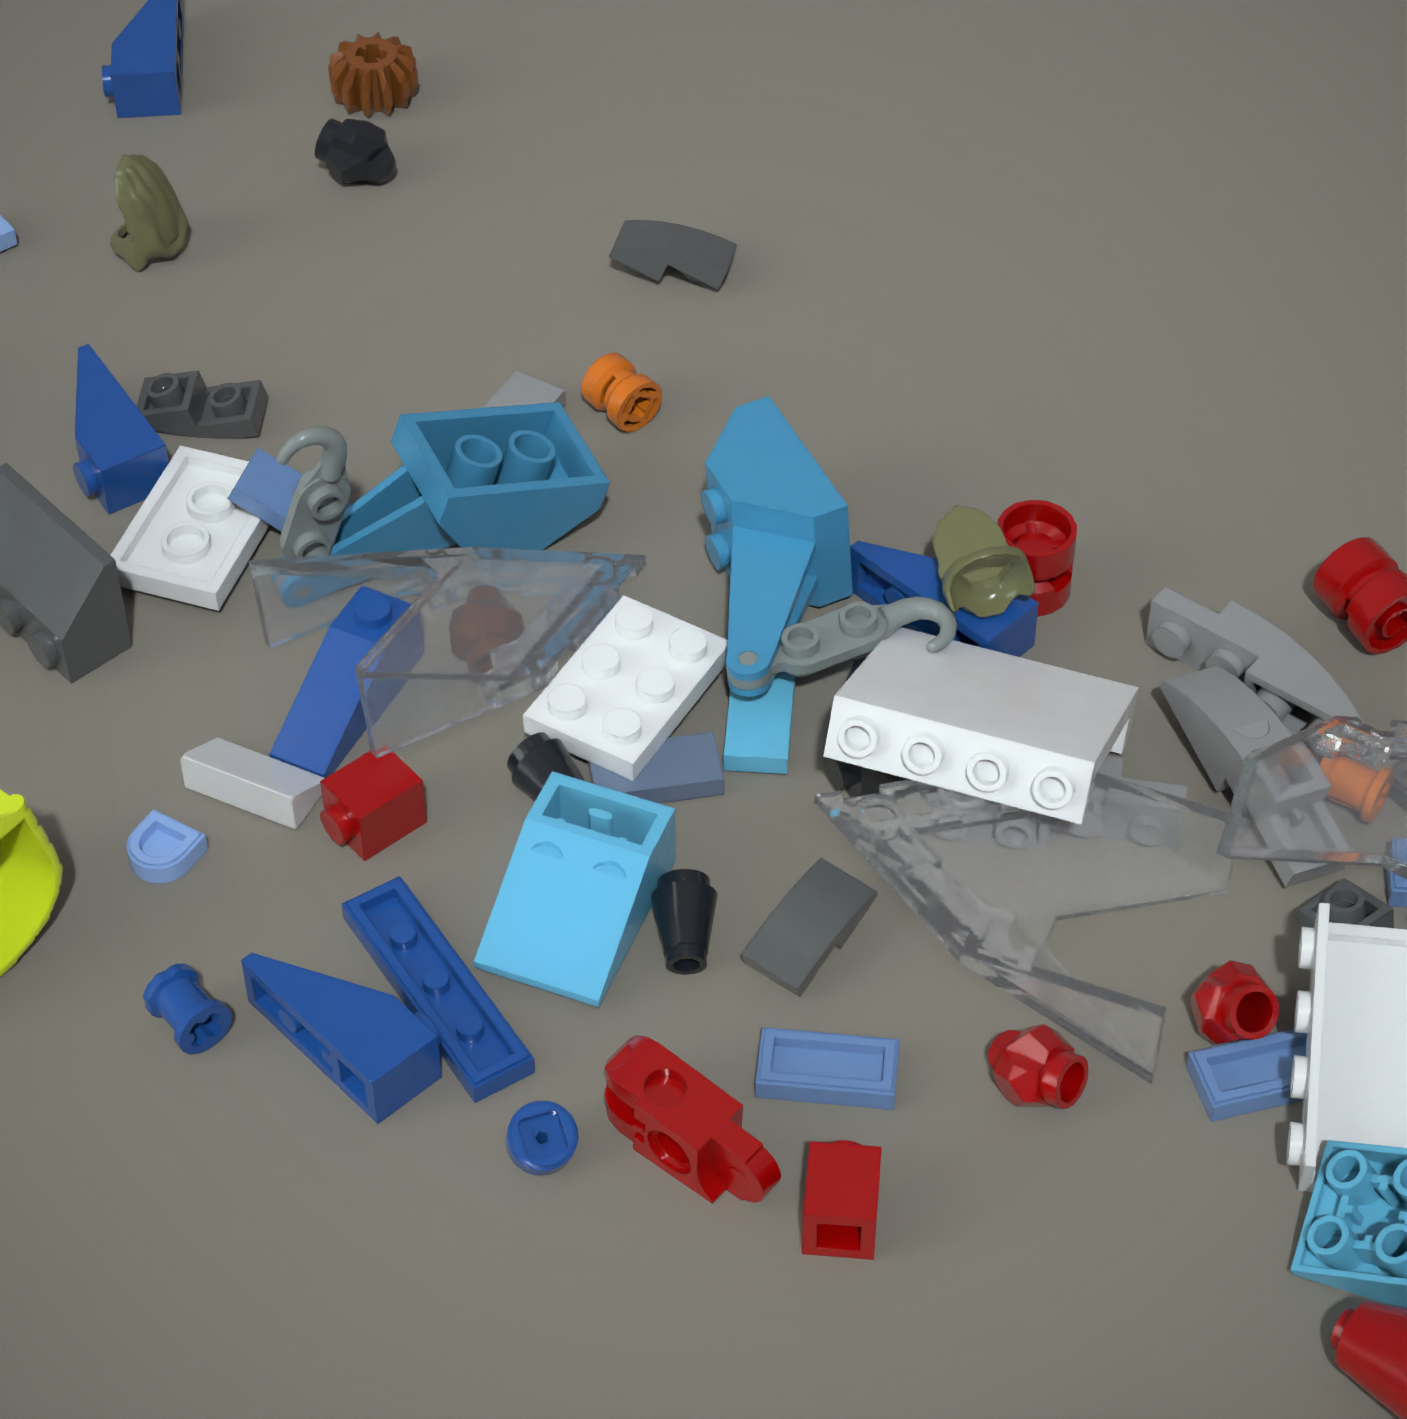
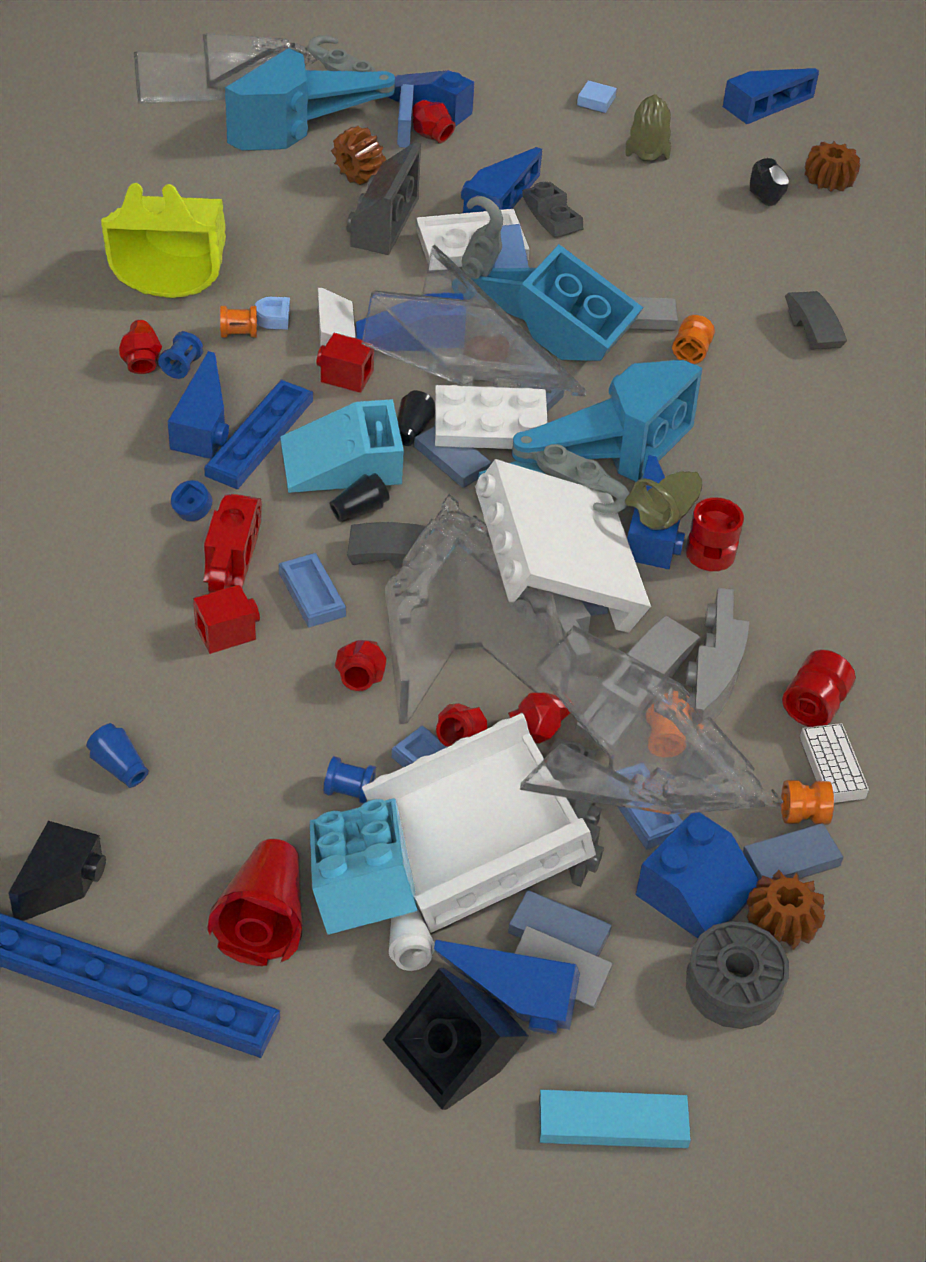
camera: 55 degrees right, 0 degrees up
(130, 1053) = (140, 348): none -> red rock
(165, 897) = (238, 321): none -> orange bush
(1253, 1183) = (348, 779): none -> blue bush
(1259, 911) = (542, 715): none -> red rock

